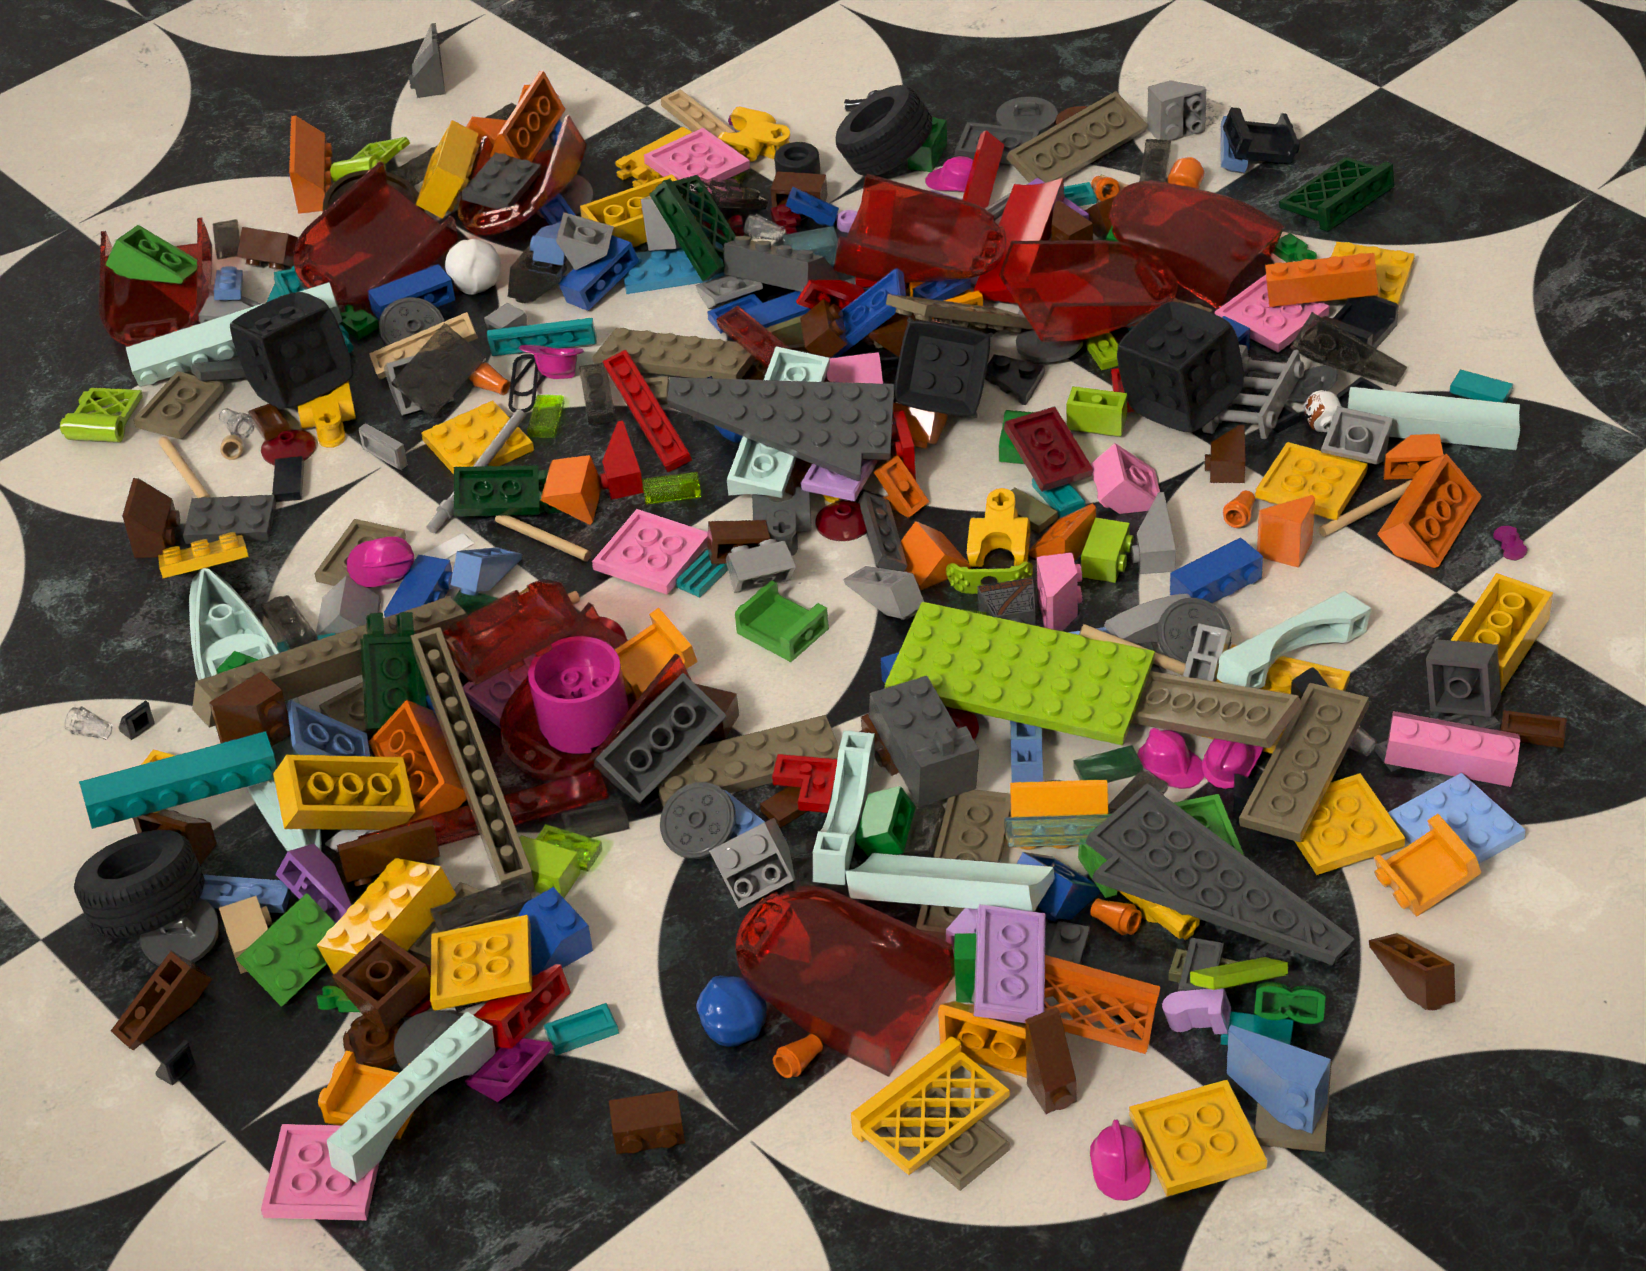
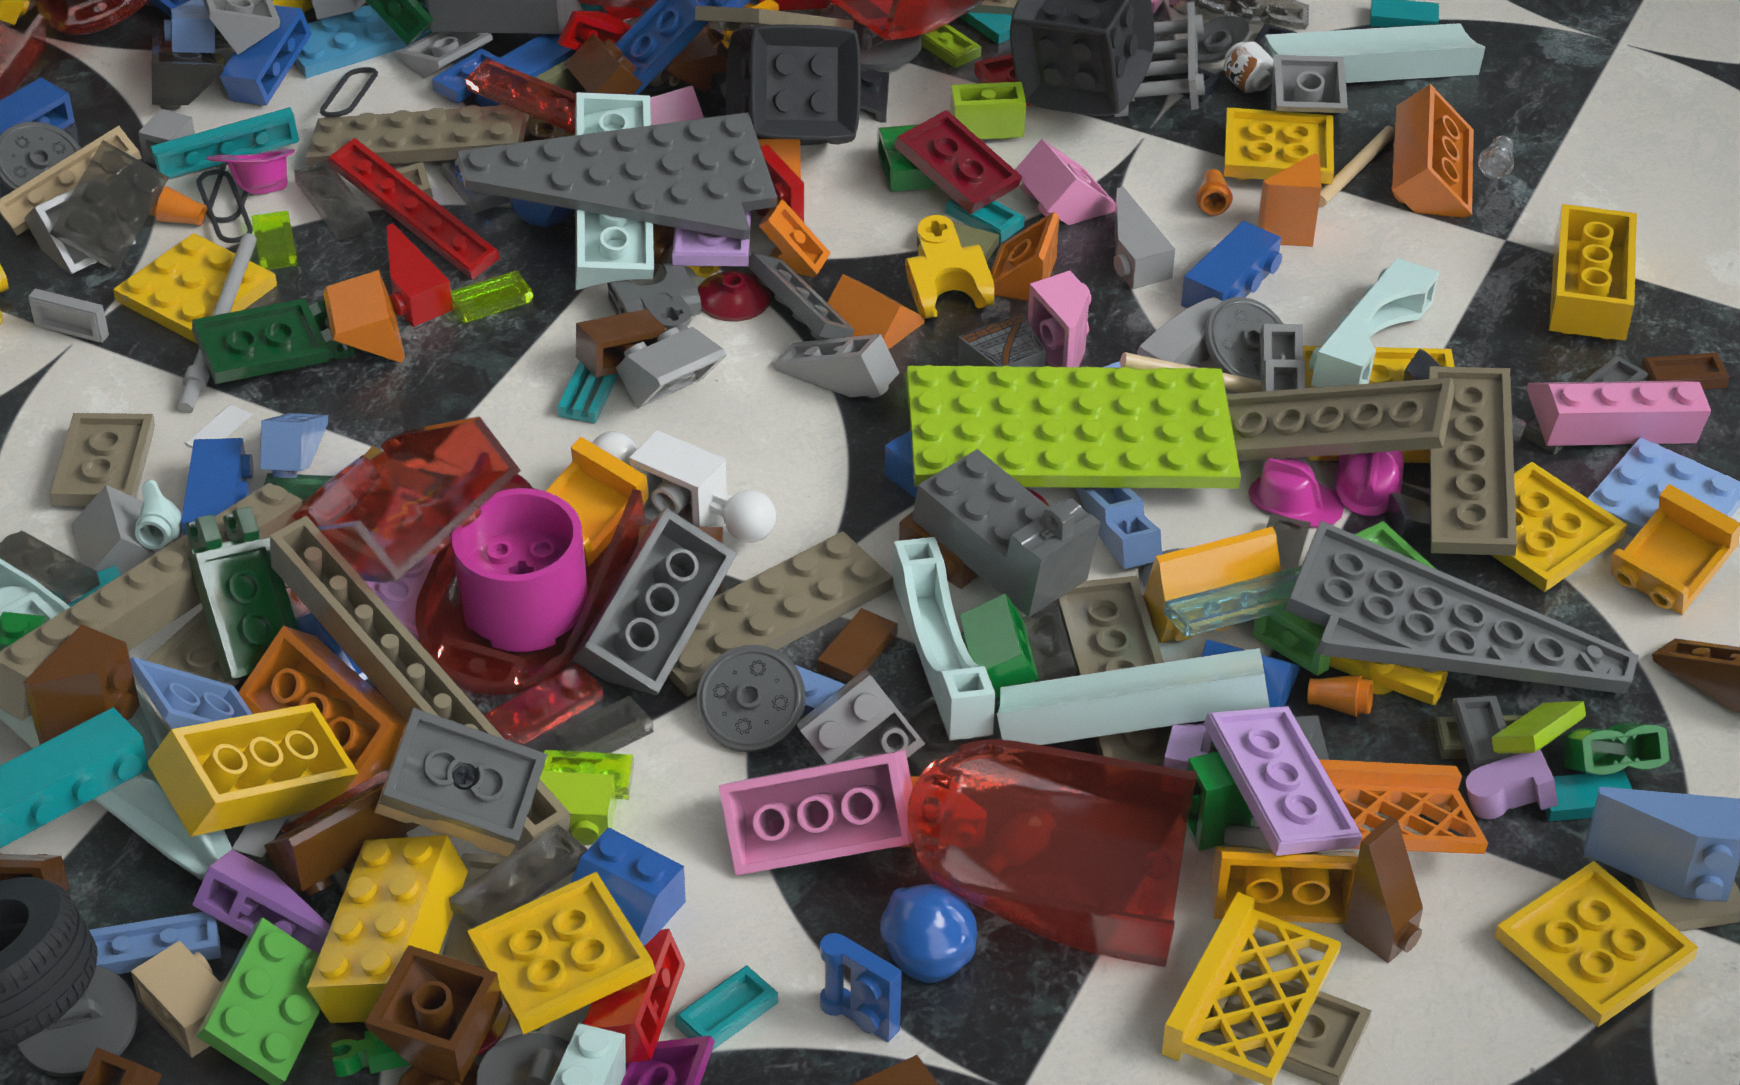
camera: 25 degrees left, 0 degrees up
(368, 603) = (158, 519): none -> light aqua animal
(380, 561) = (145, 453): dark pink piece -> none
(455, 833) = (461, 782): none -> dark grey piece
(473, 266) = (91, 72): white piece -> none
(544, 537) = (347, 388): tan bar -> none
(651, 551) = (506, 377): bright pink plate -> none
(663, 1035) = (875, 987): none -> blue plate
(674, 298) = (340, 85): none -> black piece
(692, 909) = (817, 812): none -> bright pink slope
(725, 658) = (692, 485): none -> white brick
(780, 623) = (728, 430): bright green panel -> none
(795, 1057) = (1039, 972): orange cone -> none
(811, 774) = (874, 605): red plate -> none
(967, 580) = (937, 334): lime piece -> none
(1106, 550) = (1089, 260): lime brick -> none
(1109, 765) = (1226, 518): clear green tile -> none
(1120, 1162) = (1516, 998): dark pink piece -> none
(1227, 457) = (1169, 137): reddish brown slope -> none
(1410, 454) = (1378, 98): orange slope -> none
(1463, 677) = (1595, 326): dark grey brick -> none
(1482, 524) = (1497, 158): none -> clear cone
(1511, 543) = (1536, 173): magenta piece -> none

